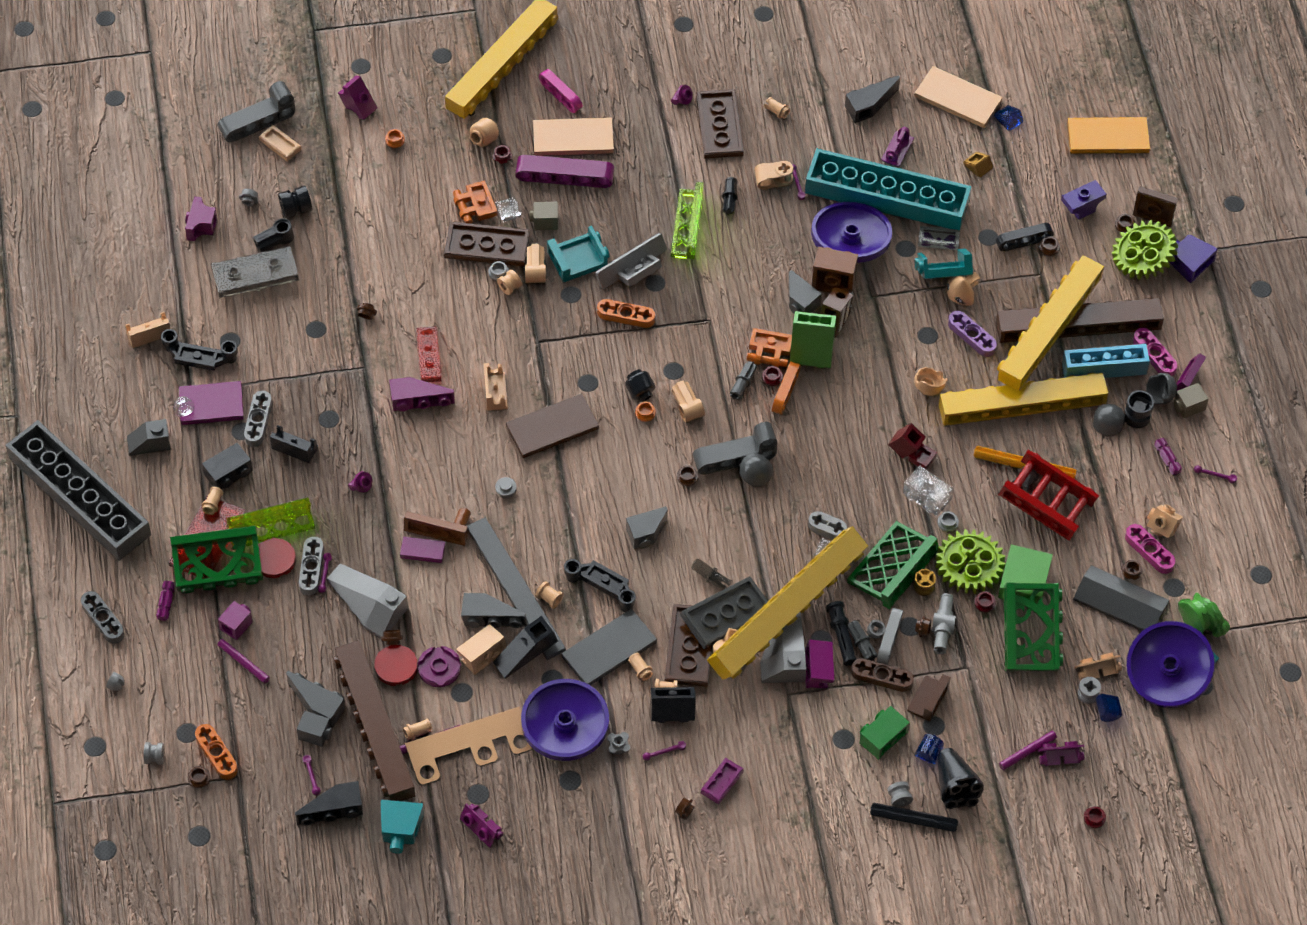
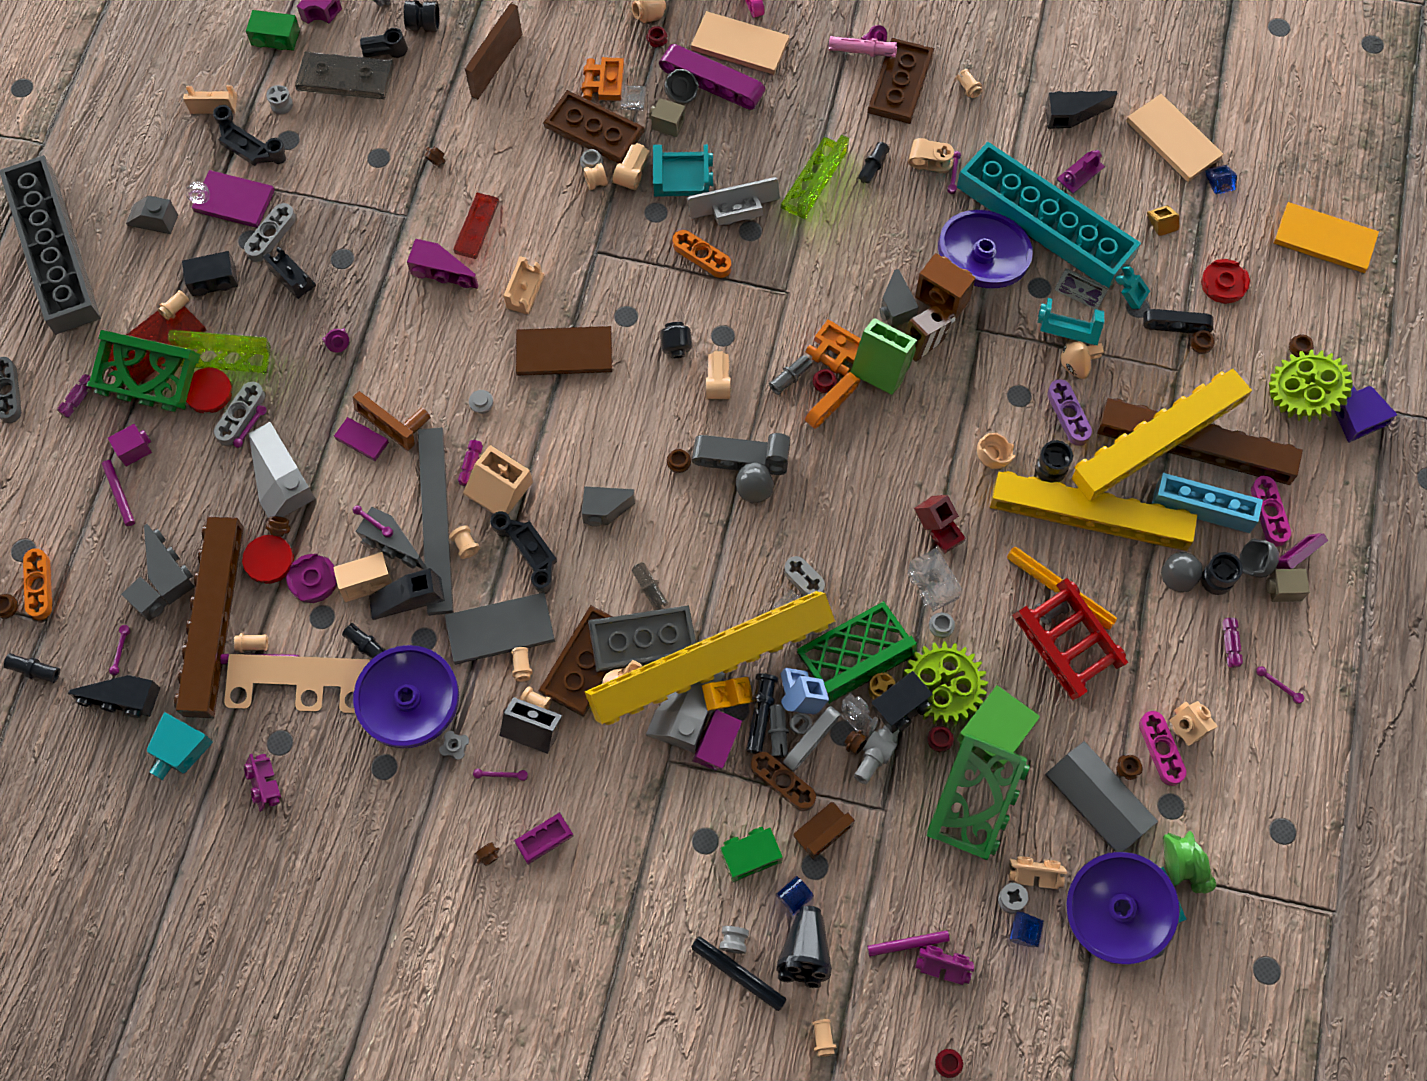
camera: 25 degrees right, 10 degrees up
(171, 255) = (273, 30): none -> green brick
(210, 305) = (275, 95): none -> light grey wheel
(249, 812) = (31, 668): none -> black pin
(375, 210) = (493, 51): none -> reddish brown tile
(488, 604) = (386, 531): none -> magenta hinge
(508, 696) = (364, 643): none -> black pin
(521, 536) = (471, 457): none -> magenta axle
(544, 187) = (681, 86): none -> dark grey hair
(553, 539) = (497, 481): none -> light nougat slope
(645, 411) = (669, 371): orange plate -> none
(677, 106) = (870, 47): none -> bright pink pin
(811, 627) = (727, 693): none -> light orange slope
(869, 604) = (803, 692): none -> medium blue brick
(917, 604) = (856, 713): none -> clear plate
(947, 582) = (903, 702): none -> black brick
(978, 372) = (1054, 461): none -> black wheel
(980, 223) = (1134, 289): none -> teal plate
(998, 836) = (823, 1038): none -> light nougat pin
(1045, 194) = (1225, 281): none -> red tile
(1084, 199) = (1265, 302): brick -> none
(1155, 206) = (1344, 339): reddish brown tile -> none

